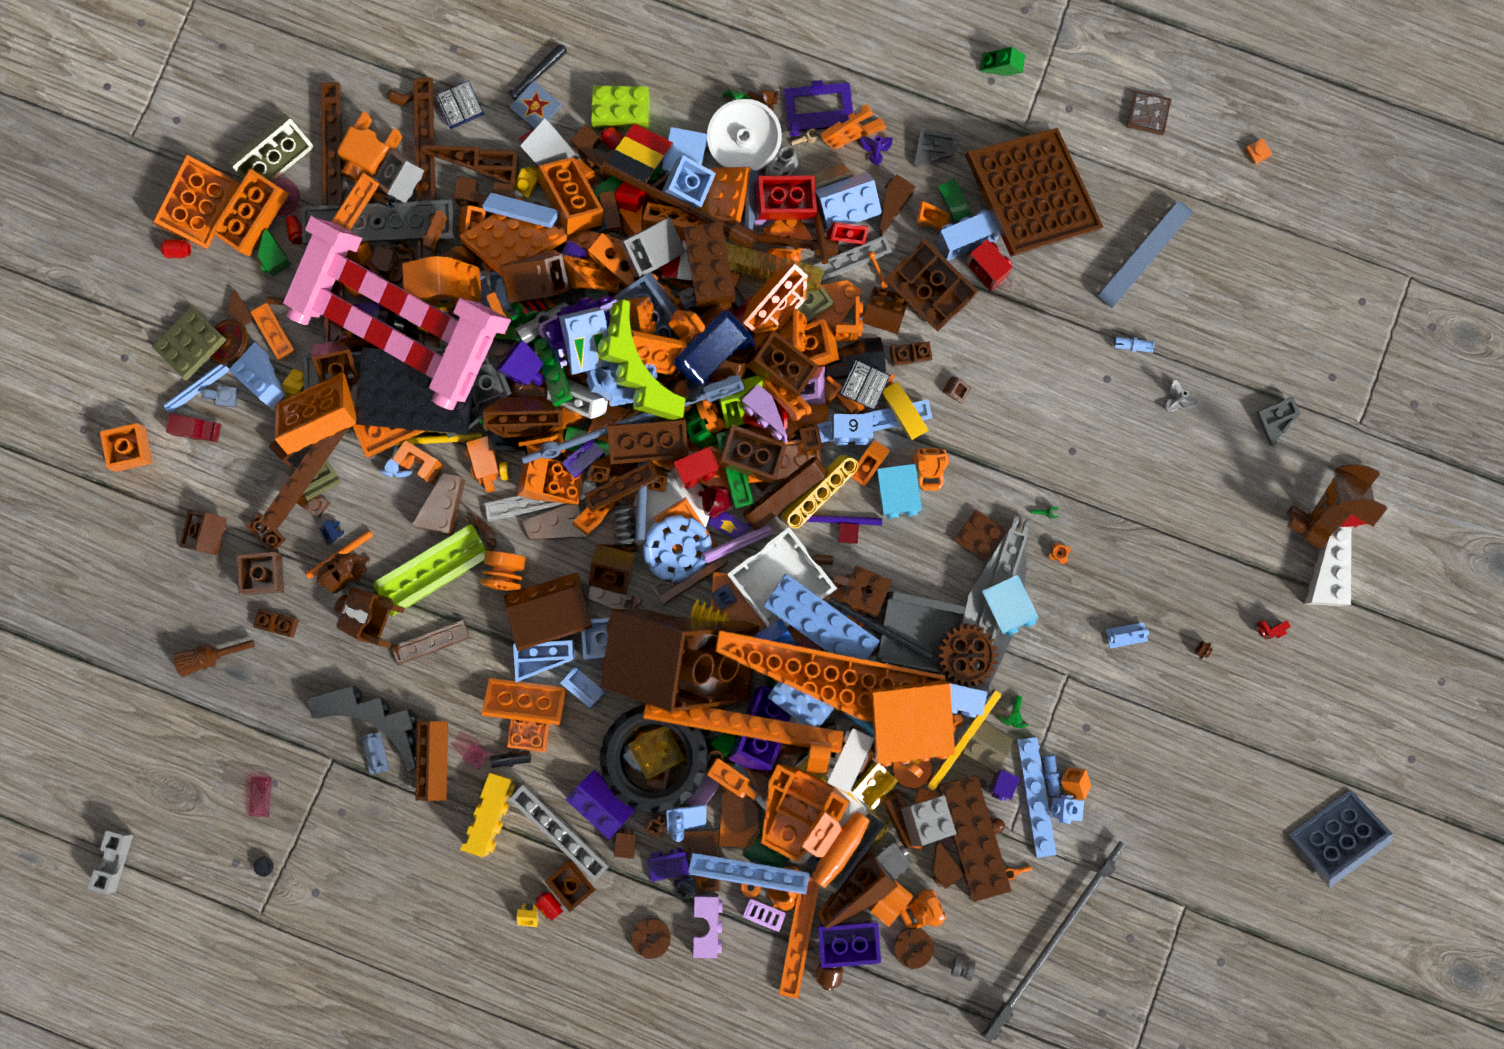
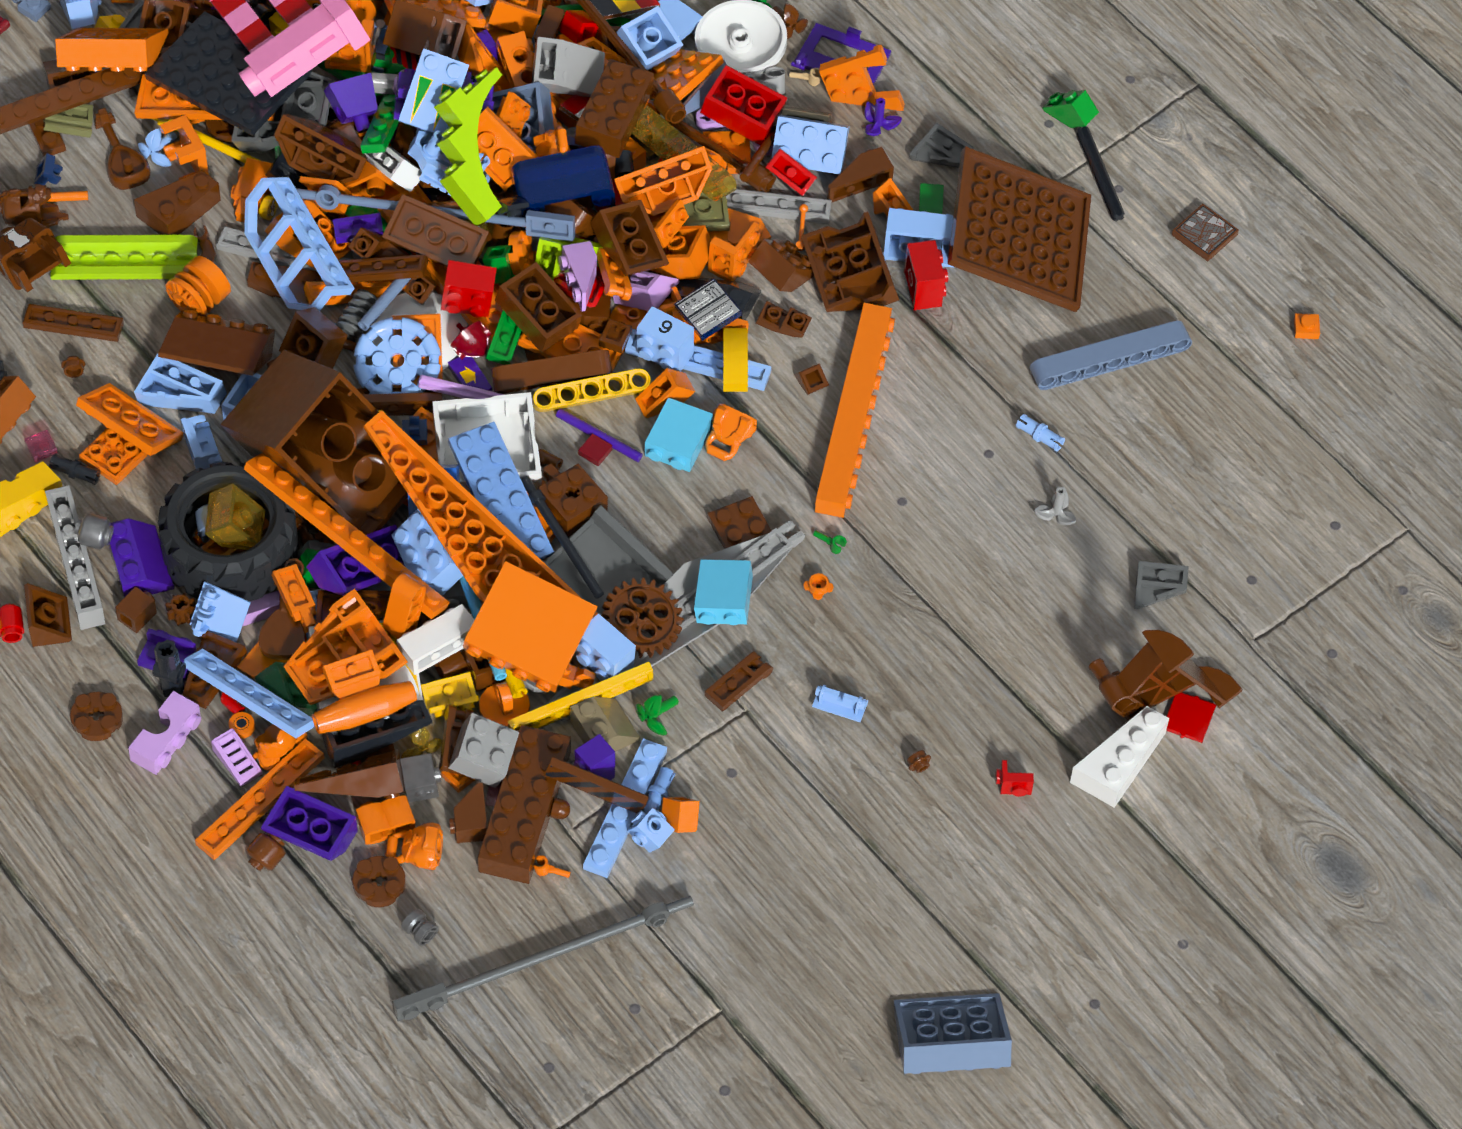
camera: 25 degrees right, 25 degrees down
(381, 492) = (125, 165): none -> reddish brown piece
(455, 679) = (73, 366): none -> reddish brown plate
(559, 492) = (308, 233): none -> light blue plate
(565, 815) = (94, 531): none -> flat silver head
(1002, 399) = (853, 411): none -> orange brick
(1019, 805) = (596, 785): none -> reddish brown tile
(1048, 101) = (1100, 173): none -> black axle
(1052, 659) = (738, 681): none -> reddish brown plate

